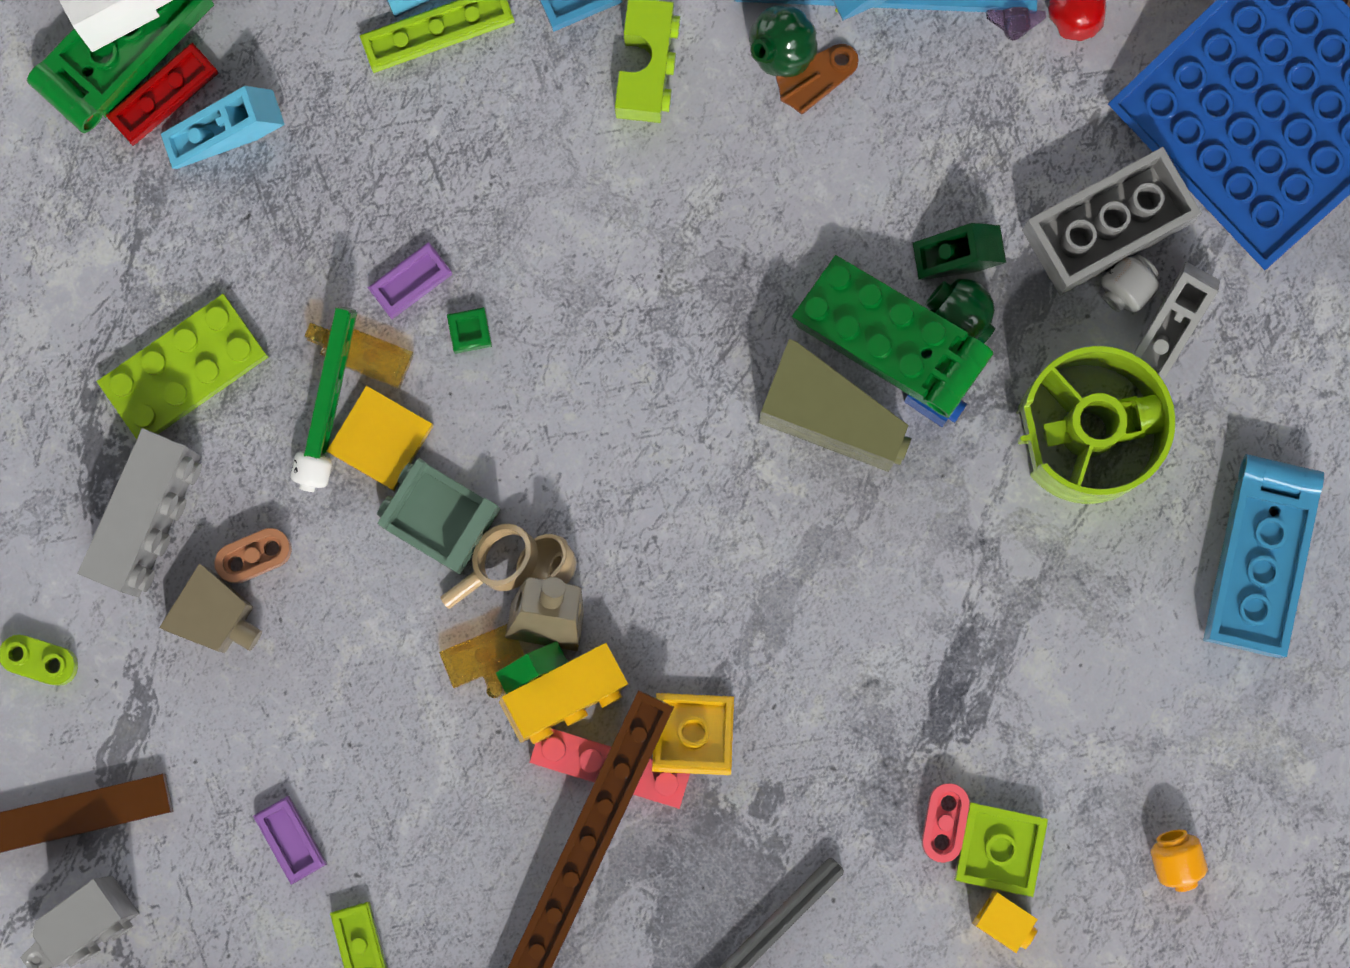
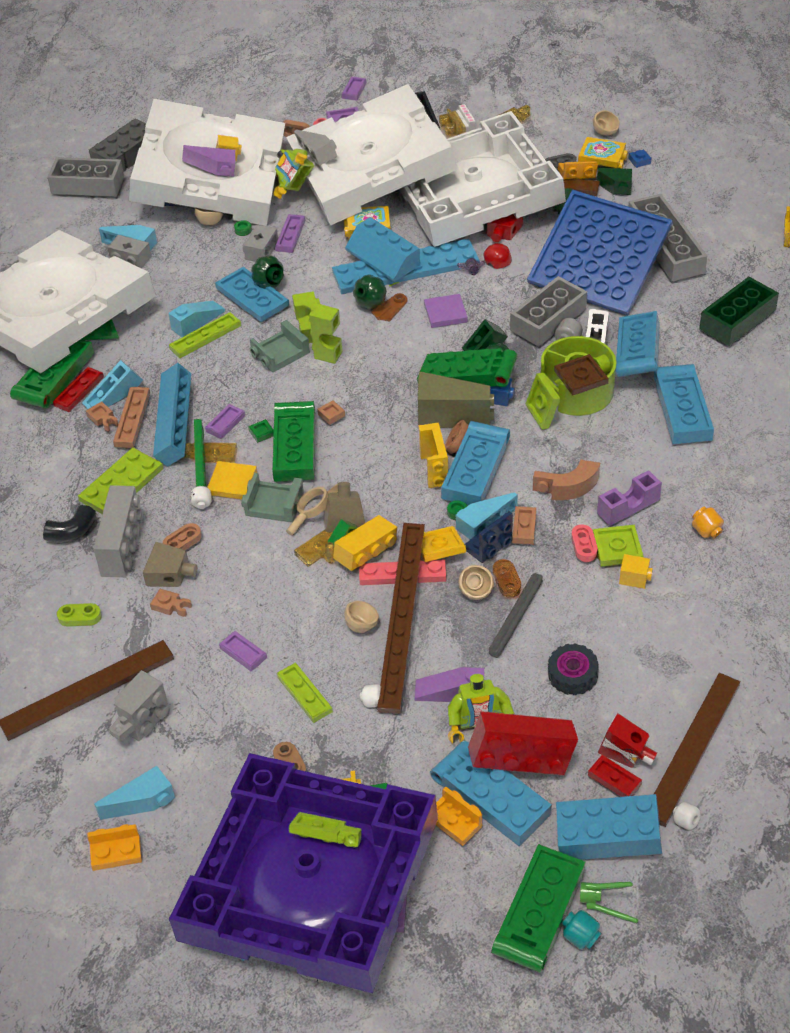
camera: 20 degrees left, 35 degrees down
(65, 463) = (72, 528): none -> black cylinder
(185, 187) = (103, 415): none -> nougat plate
(193, 687) = (168, 601): none -> nougat plate
(240, 212) = (131, 417): none -> nougat plate
(313, 242) = (172, 415): none -> dark azure brick
(503, 853) = (360, 616): none -> tan piece
(516, 389) = (294, 441): none -> green hinge
(565, 124) = (281, 348): none -> sand green panel
(608, 335) = (331, 412): none -> nougat plate
(653, 149) = (323, 325): none -> lime arch
(722, 852) = (476, 582): none -> tan piece
(755, 657) = (454, 507): none -> green tile
(765, 498) = (433, 449): none -> yellow panel
(781, 852) = (508, 579): none -> clear orange plate
(782, 755) = (491, 539): none -> dark blue bracket
(786, 699) = (483, 513): none -> medium azure slope
(815, 486) = (456, 436): none -> nougat plate
(825, 568) = (475, 463): none -> dark azure hinge
(857, 743) = (524, 525): none -> nougat plate
(918, 129) = (445, 310): none -> medium lavender tile
(999, 677) = (570, 484): none -> nougat arch
(1002, 469) = (542, 401): none -> lime plate
(1063, 760) = (615, 506): none -> medium lavender arch
(1088, 464) = (581, 374): none -> reddish brown tile
(1240, 388) = (638, 344): none -> dark azure hinge

